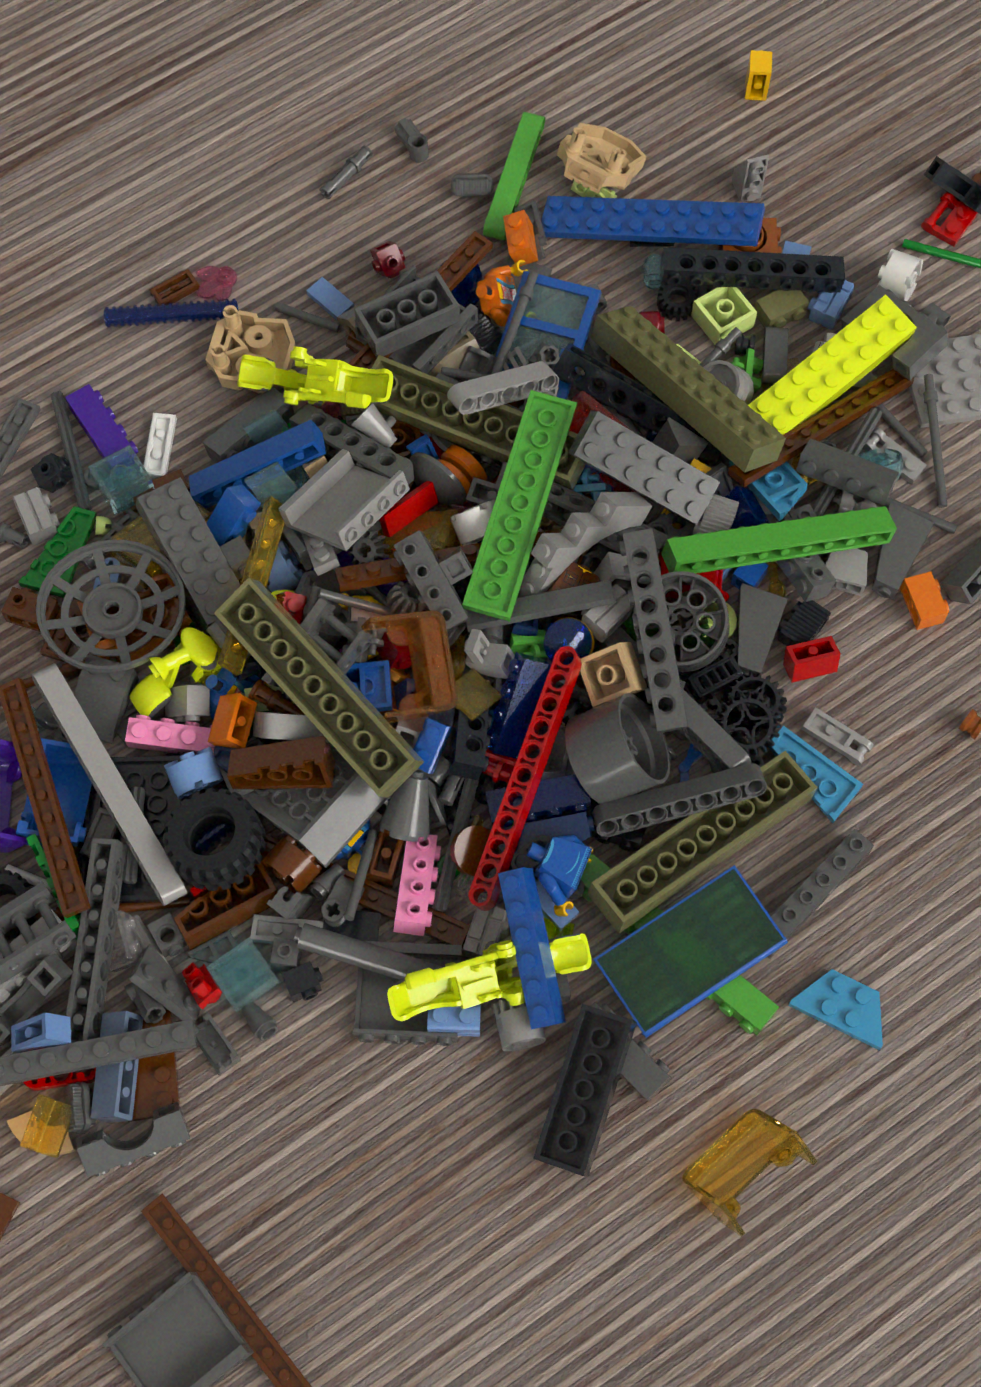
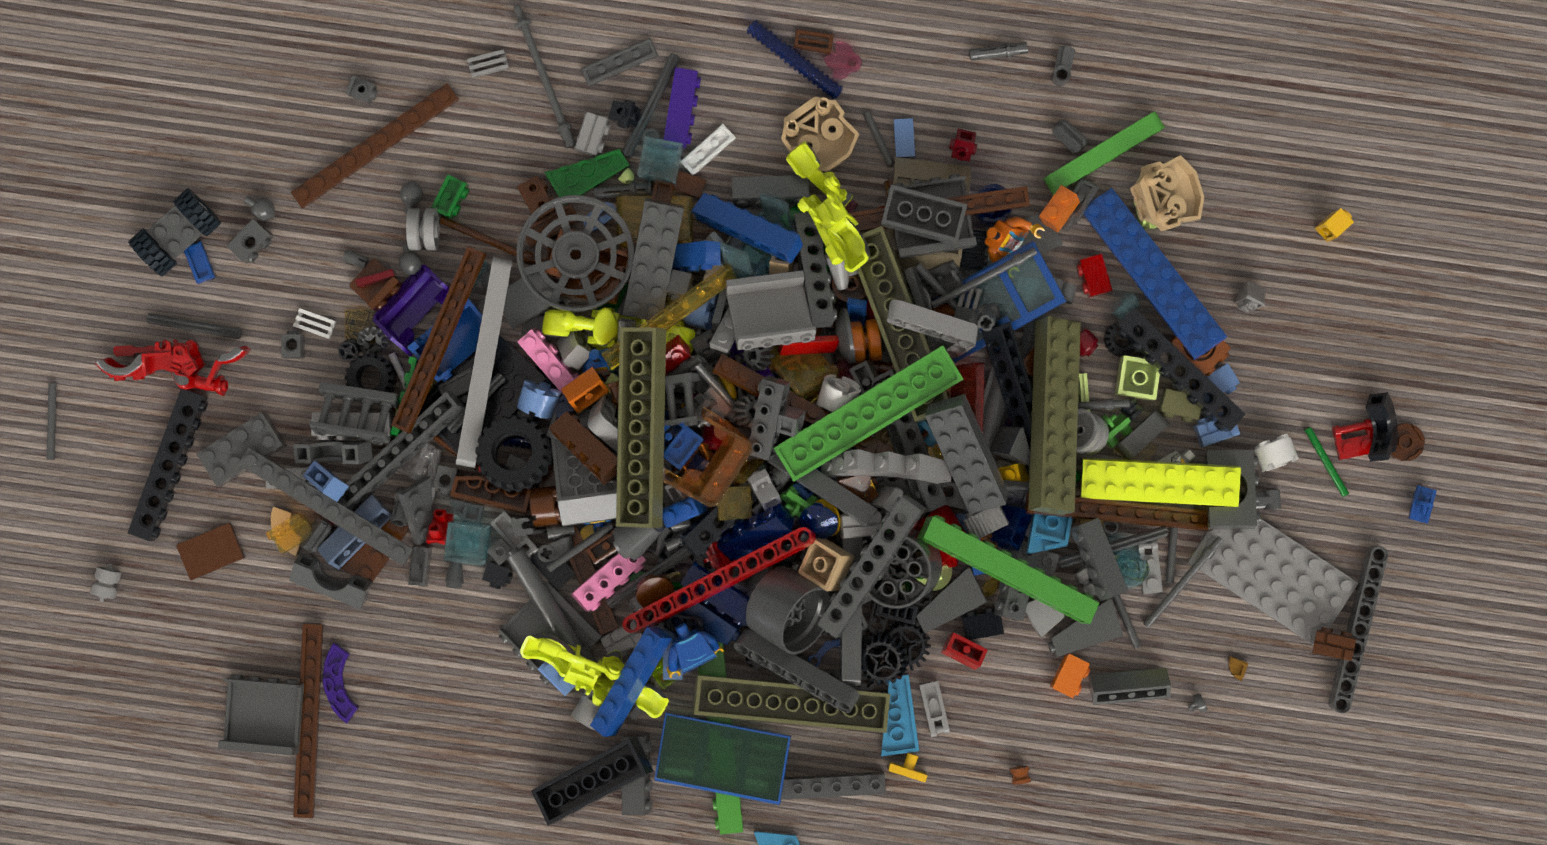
camera: 40 degrees right, 20 degrees up
(230, 1248) = (334, 683): none -> dark purple tile
(603, 270) = (1094, 276): none -> red brick
(869, 810) = (908, 768): none -> yellow tile

